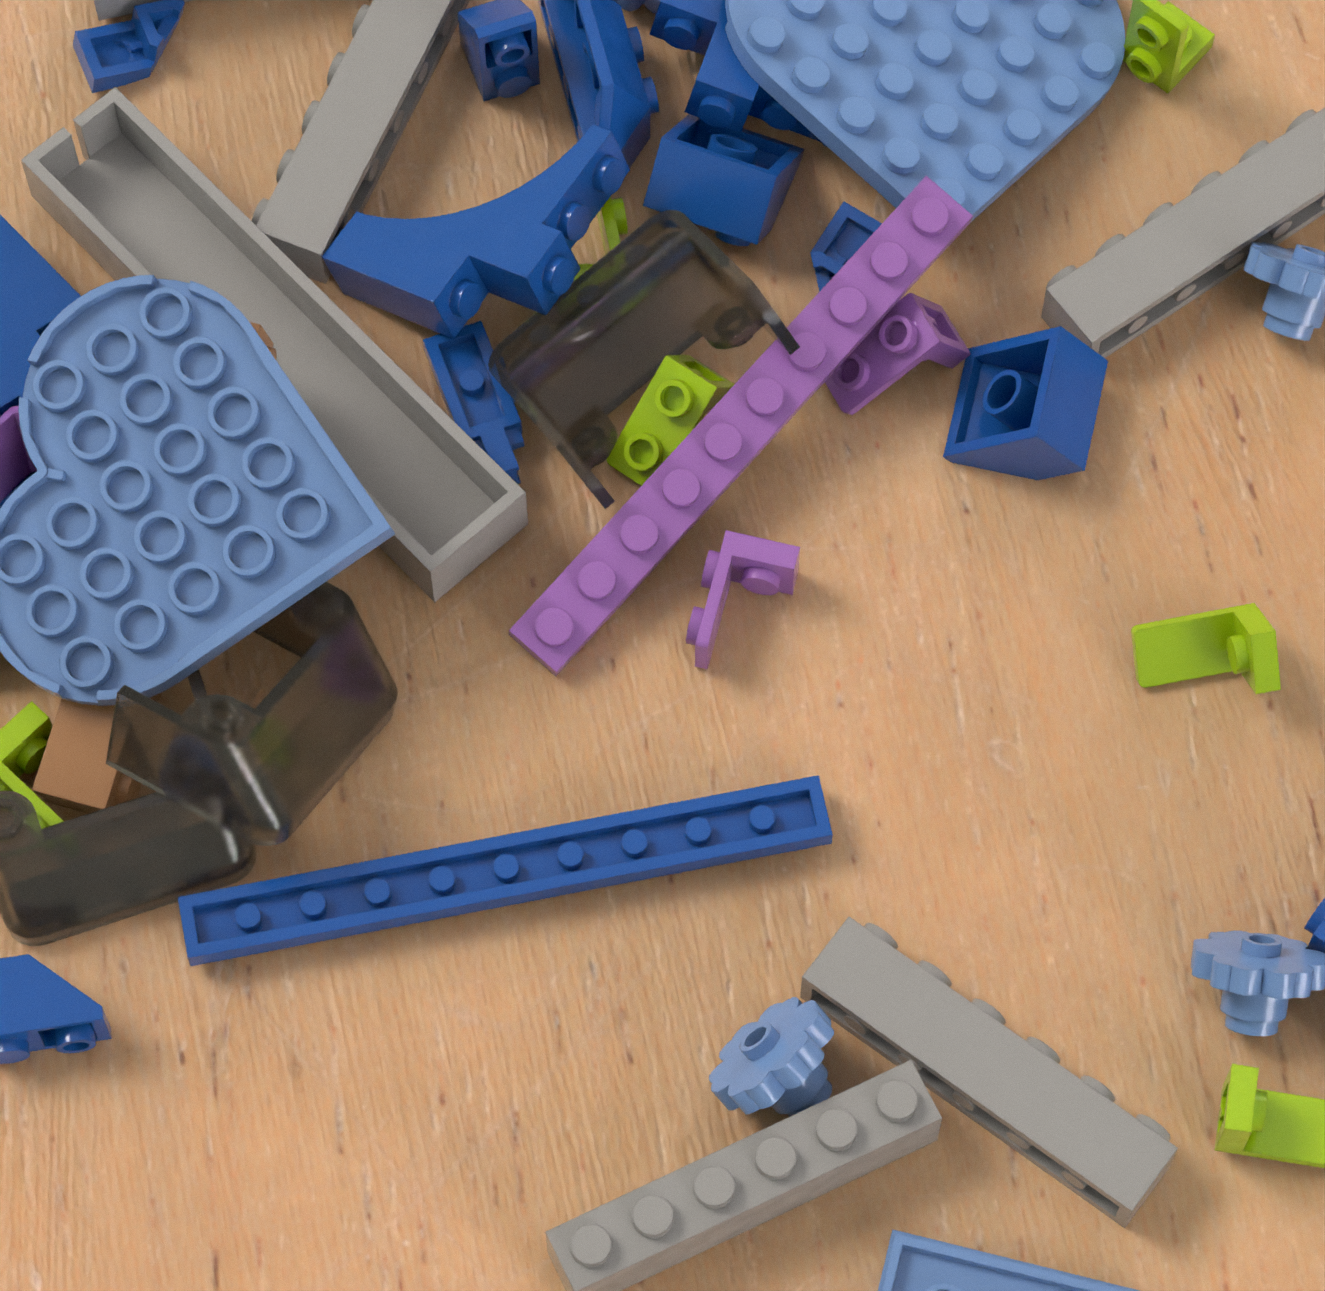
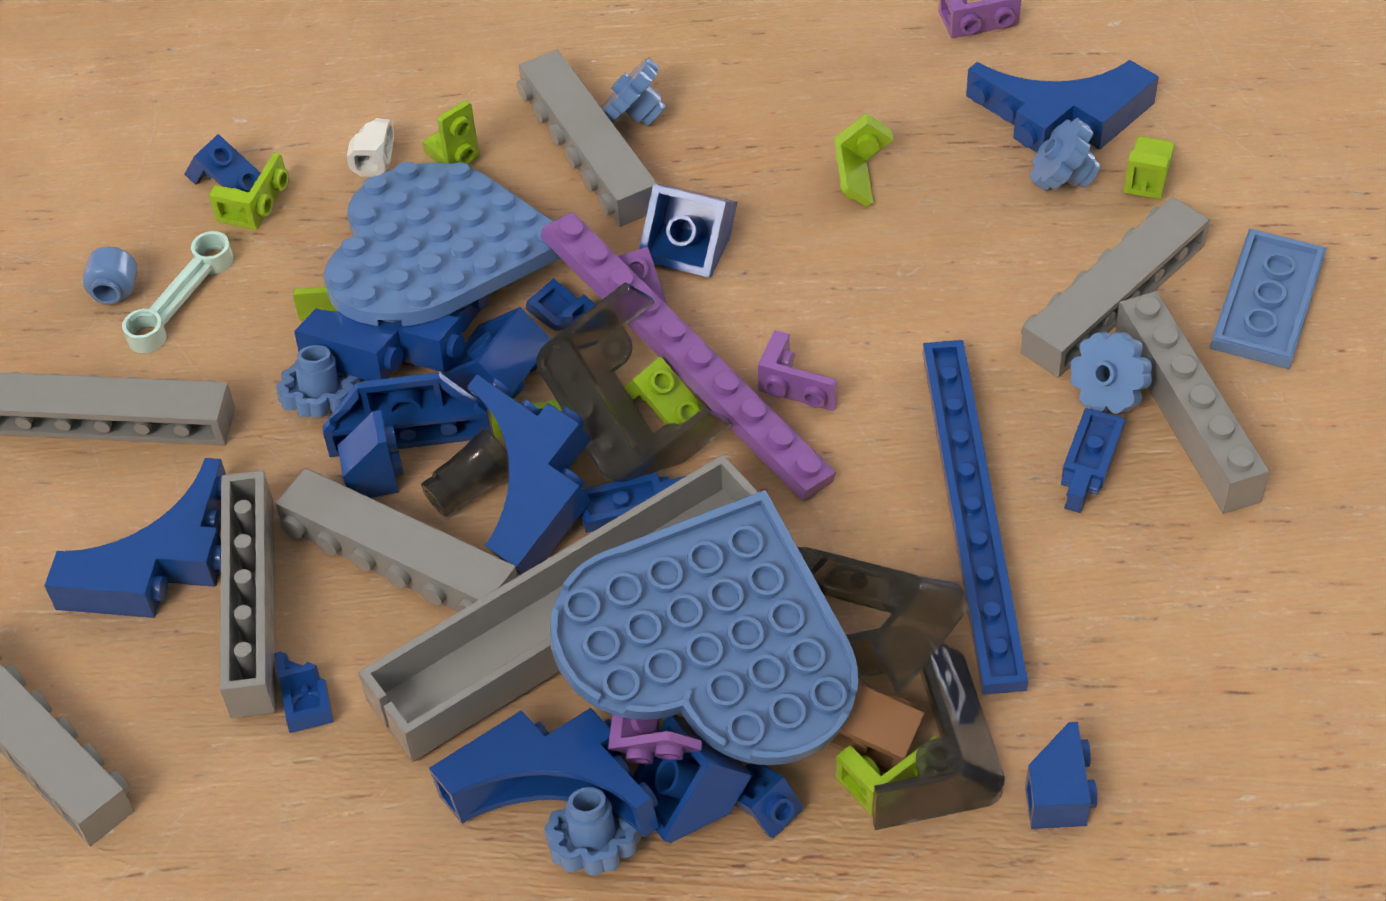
camera: 80 degrees left, 15 degrees down
(482, 160) = (468, 473): none -> clear smoke plant
(624, 1040) = (1090, 456): none -> blue hinge

